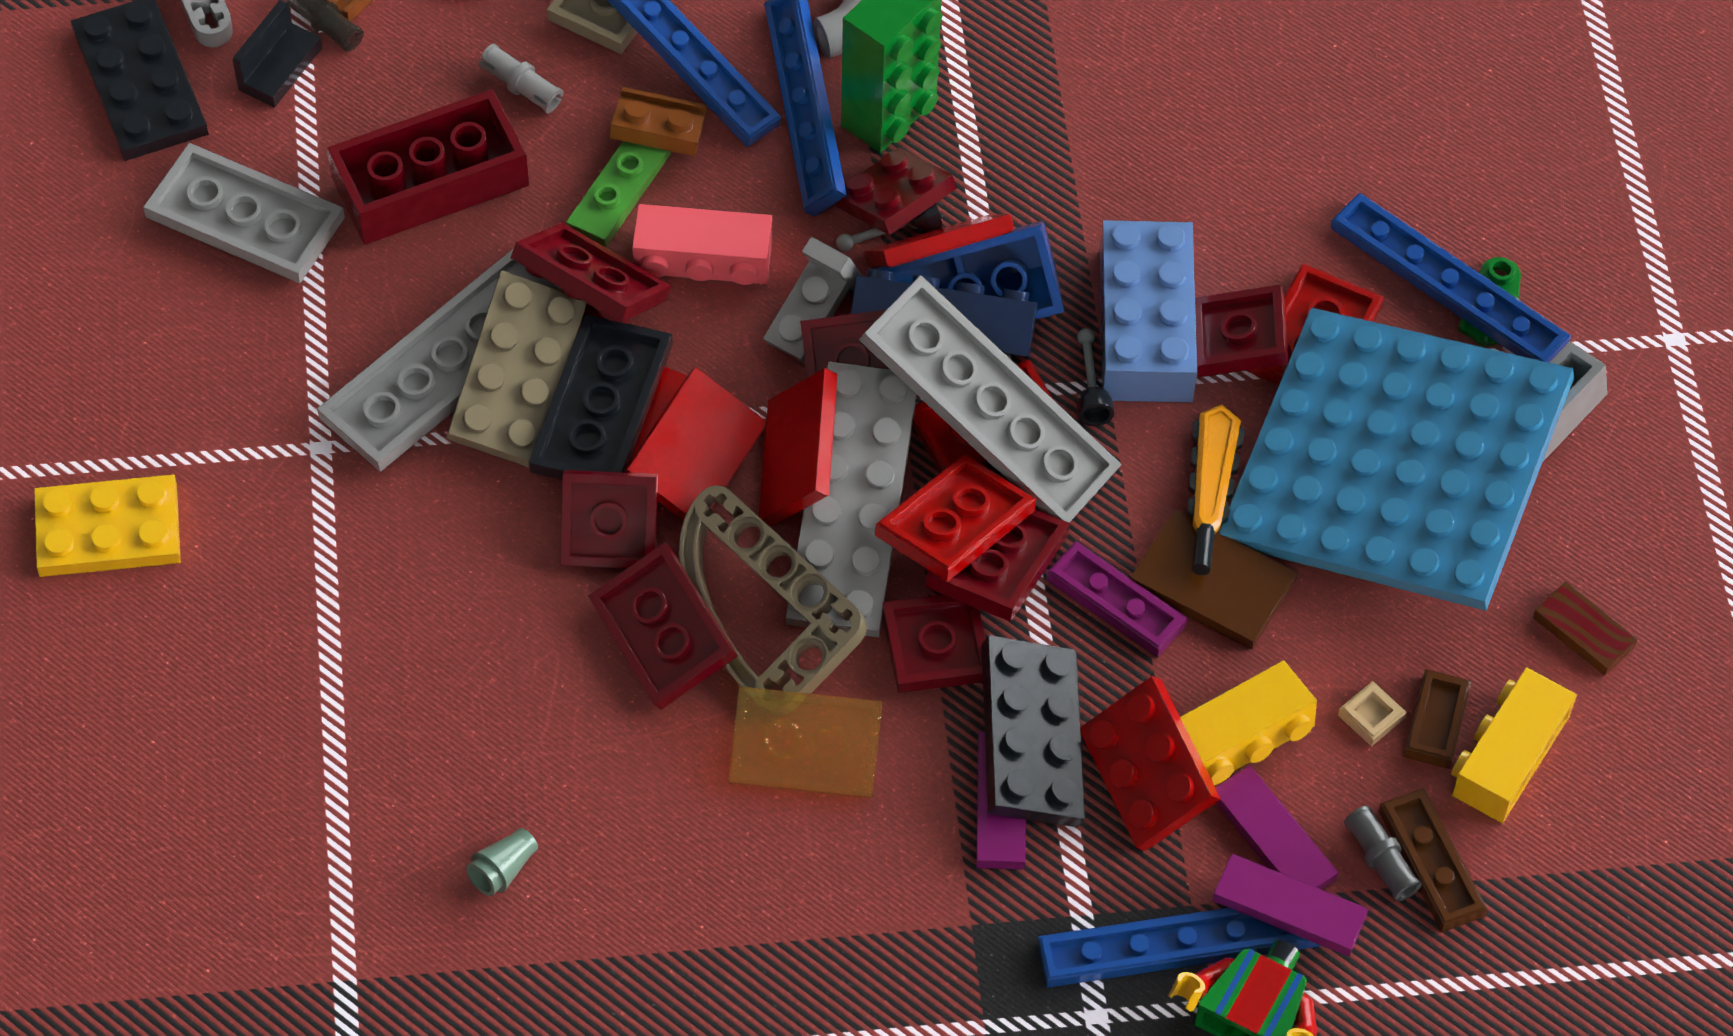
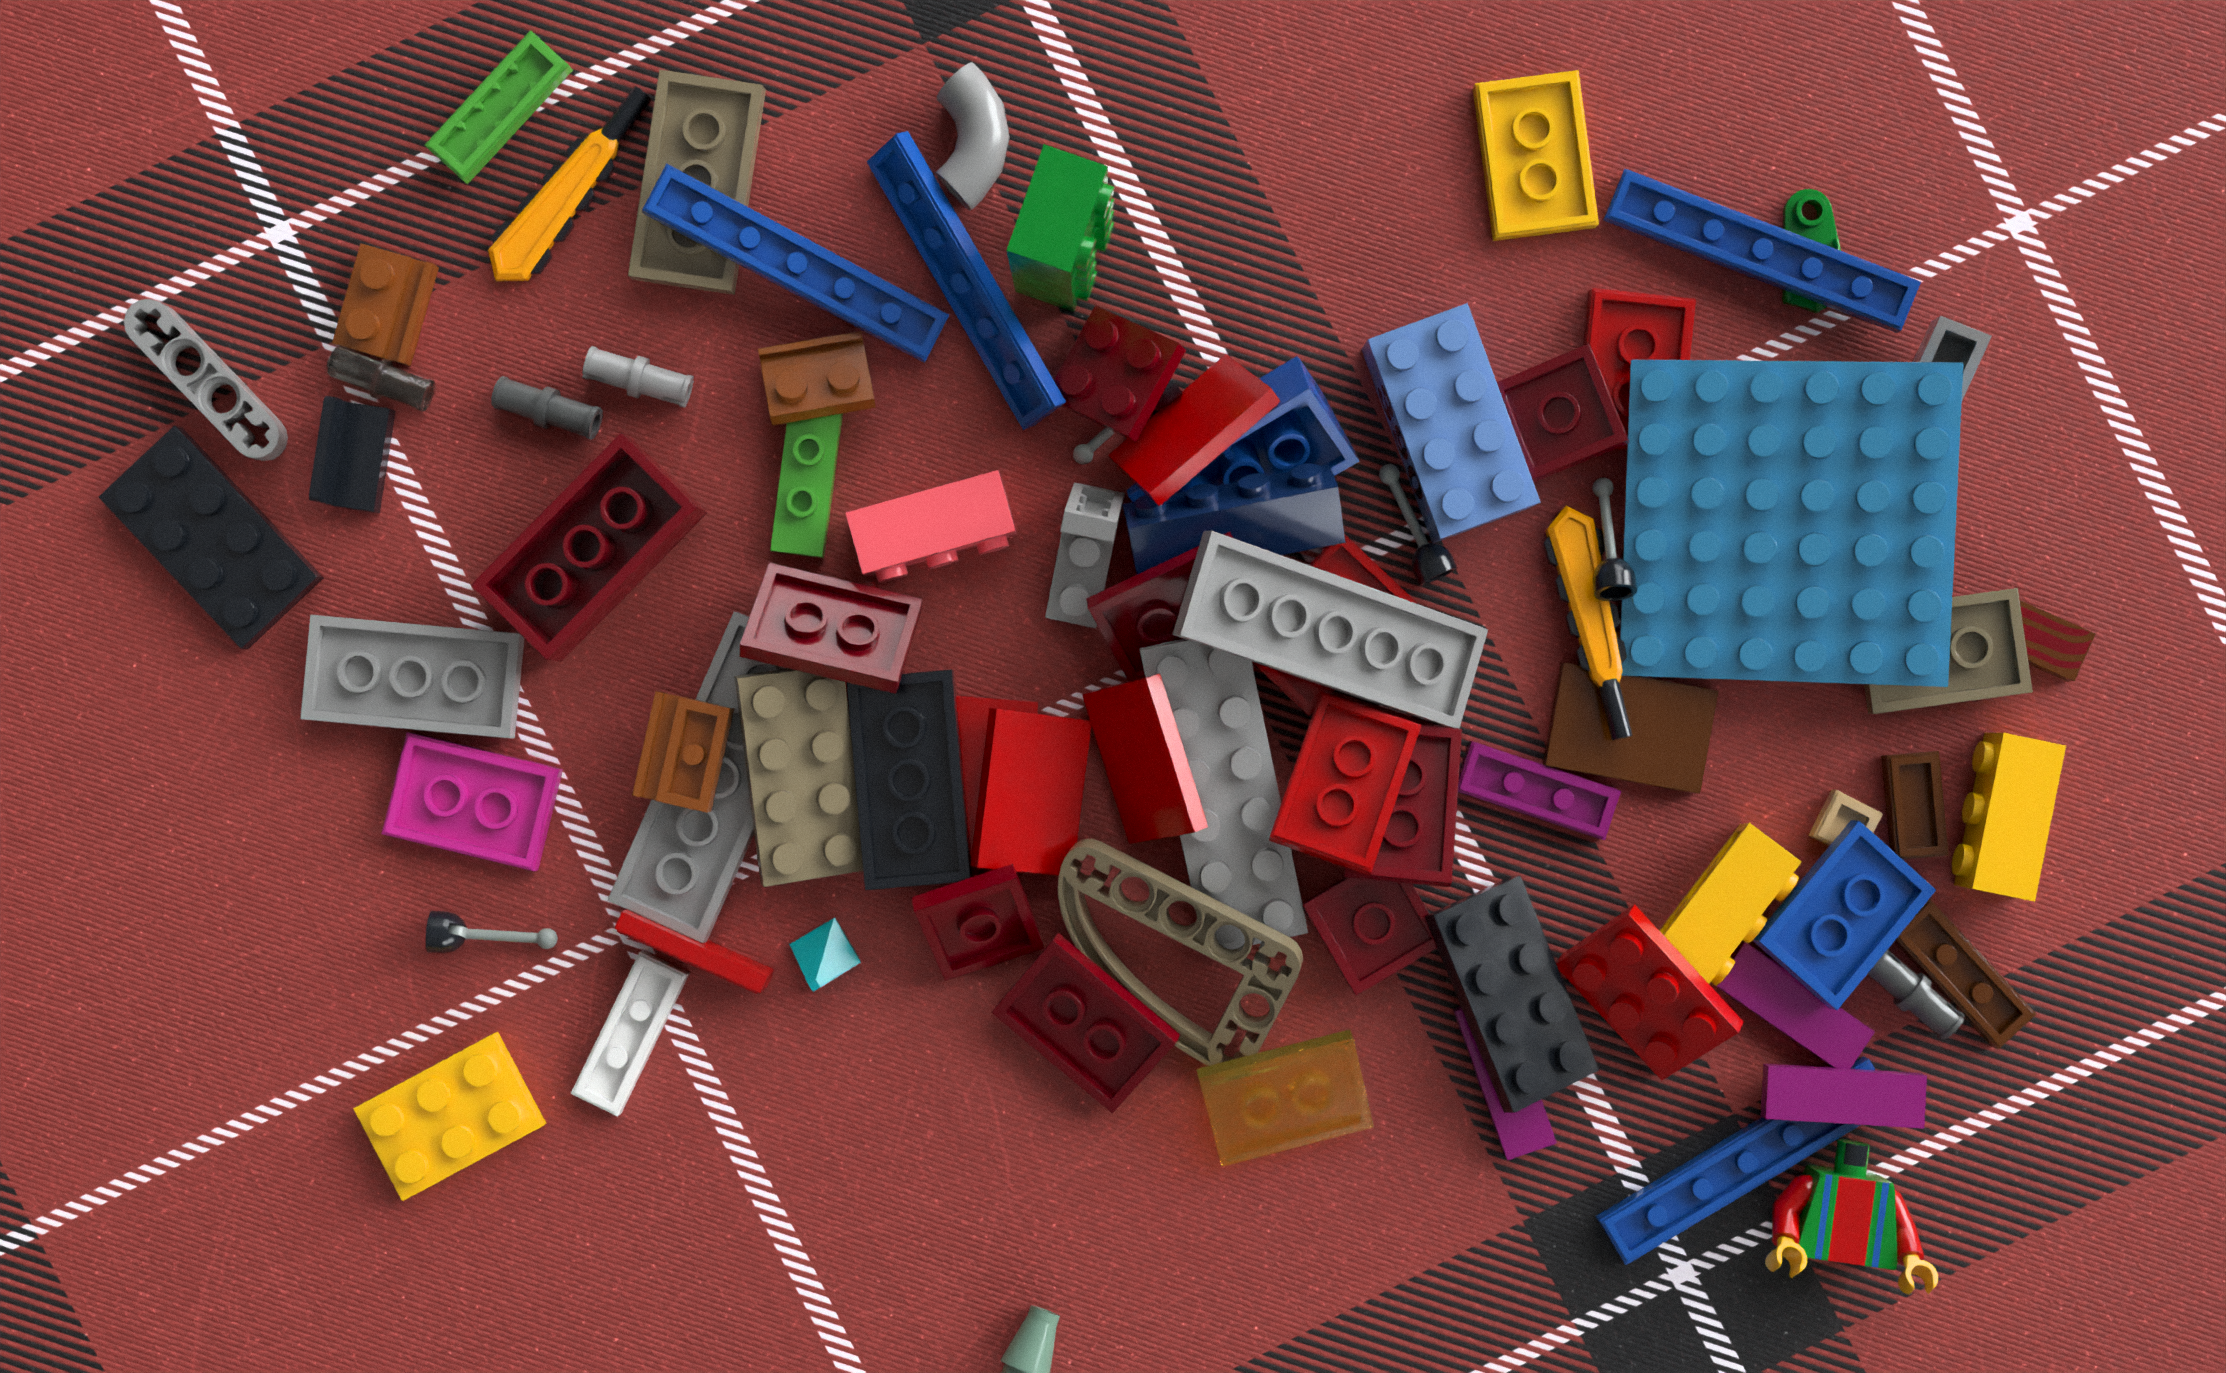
camera: 20 degrees left, 30 degrees up
(177, 392) = (448, 932): none -> hinge
(244, 315) = (472, 801): none -> dark pink tile
(283, 517) = (630, 1033): none -> white tile
(369, 468) = (705, 956): none -> red tile
(432, 316) = (683, 751): none -> dark orange plate
(438, 73) = (547, 407): none -> dark grey pin
(471, 516) = (824, 954): none -> teal slope
(1243, 453) = (1612, 577): none -> black hinge
(1292, 166) = (1535, 155): none -> yellow tile
(1341, 765) = (1844, 914): none -> blue plate
(1523, 617) = (1984, 659): none -> dark tan plate

